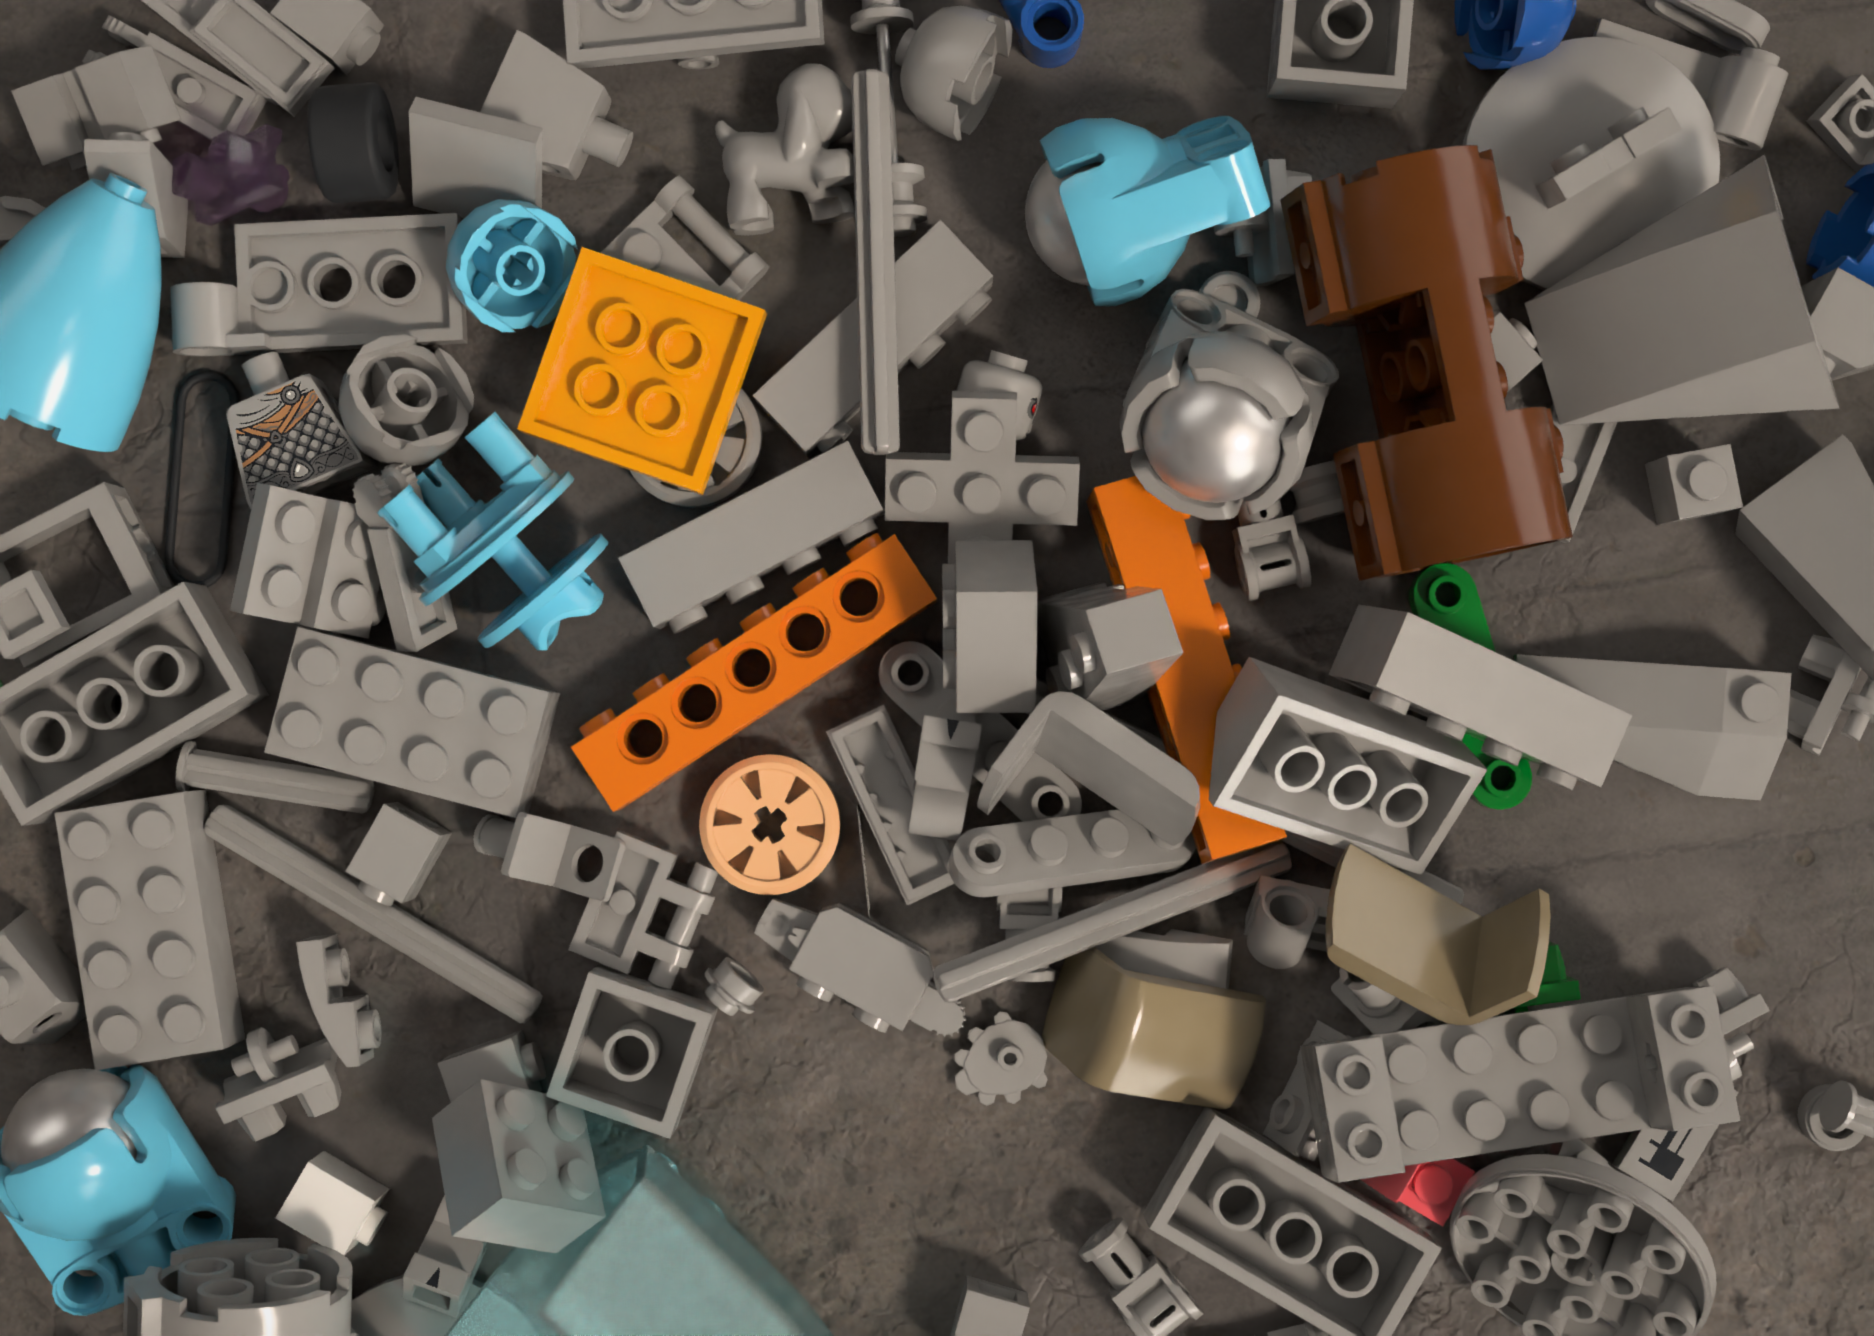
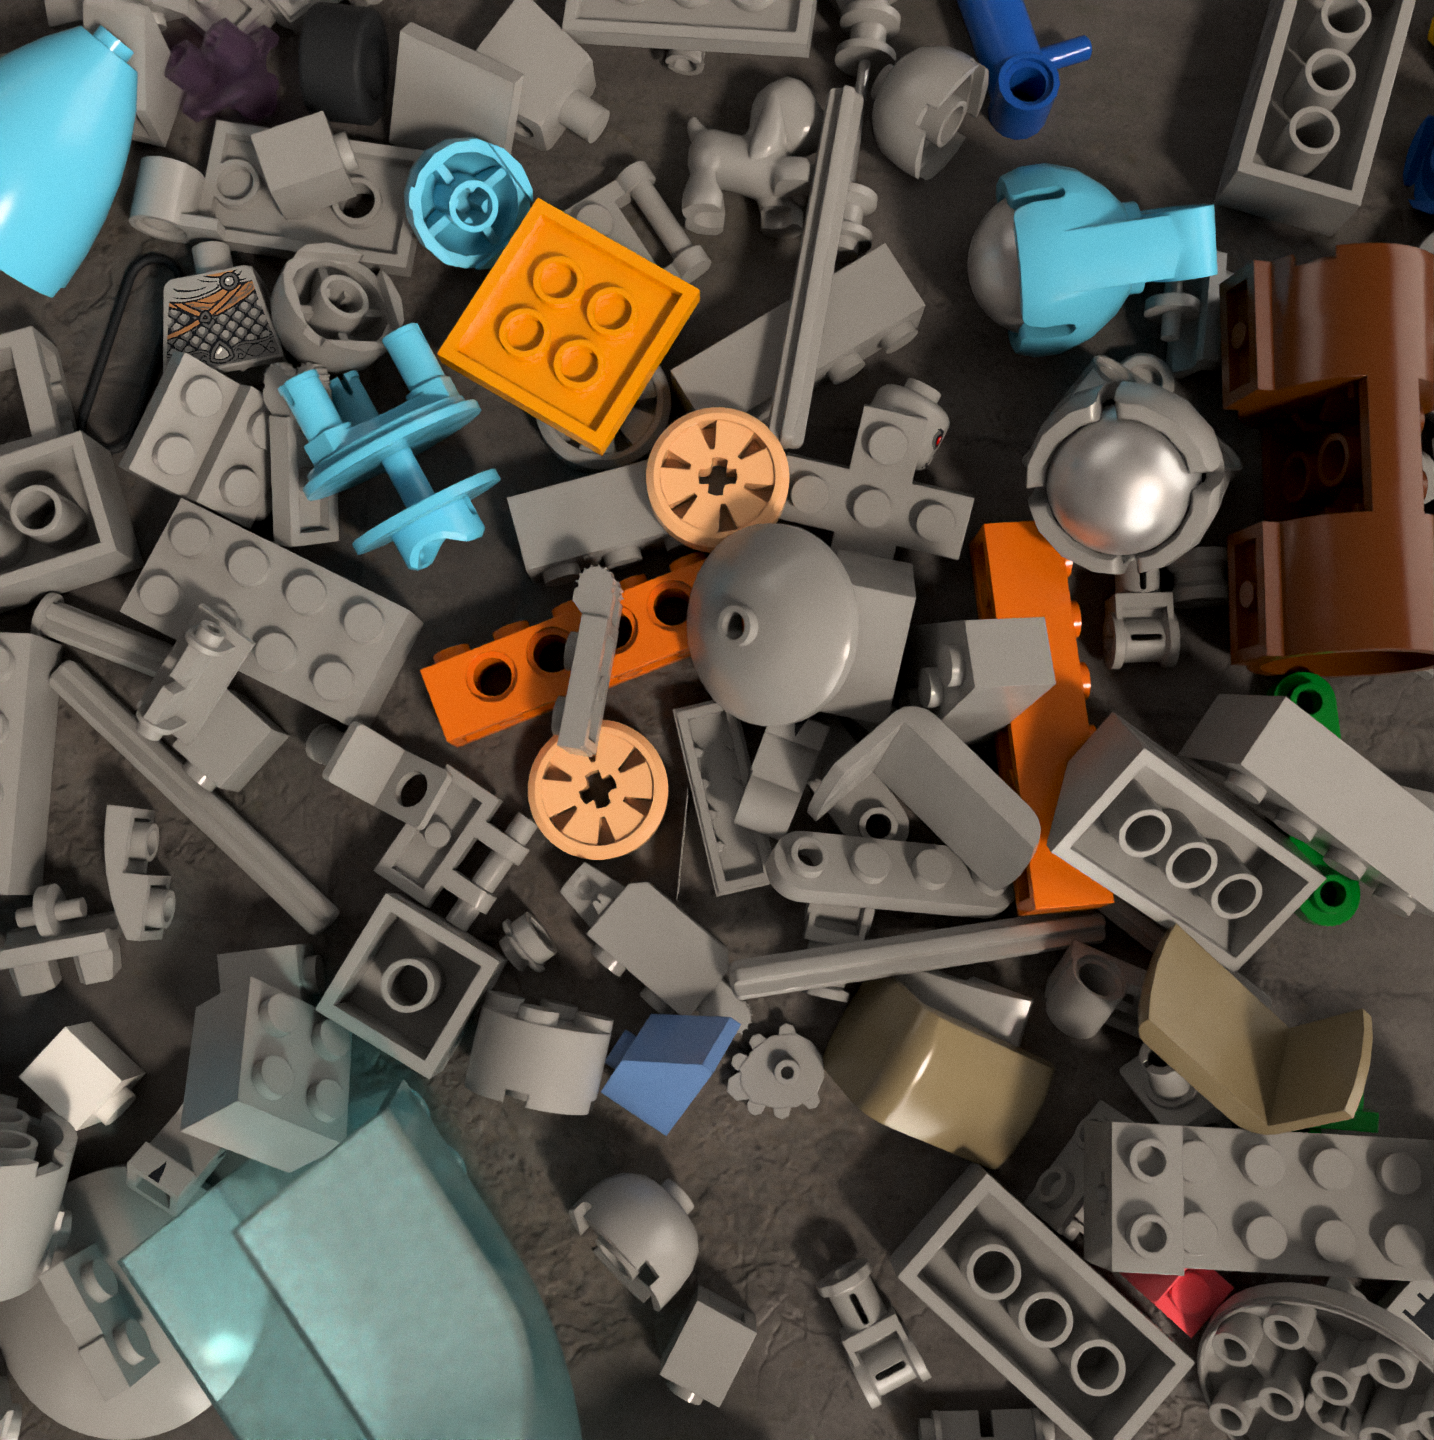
camera: 15 degrees right, 5 degrees down
(341, 260) = (306, 164): none -> light grey brick
(353, 804) = (192, 677): none -> light grey hinge
(737, 707) = (590, 659): none -> light grey hinge
(768, 1092) = (538, 1053): none -> light grey brick
(790, 477) = (690, 451): none -> light nougat wheel
(892, 1077) = (666, 1065): none -> medium blue slope
(901, 1239) = (641, 1233): none -> light grey cylinder
(926, 636) = (795, 617): none -> light grey dish

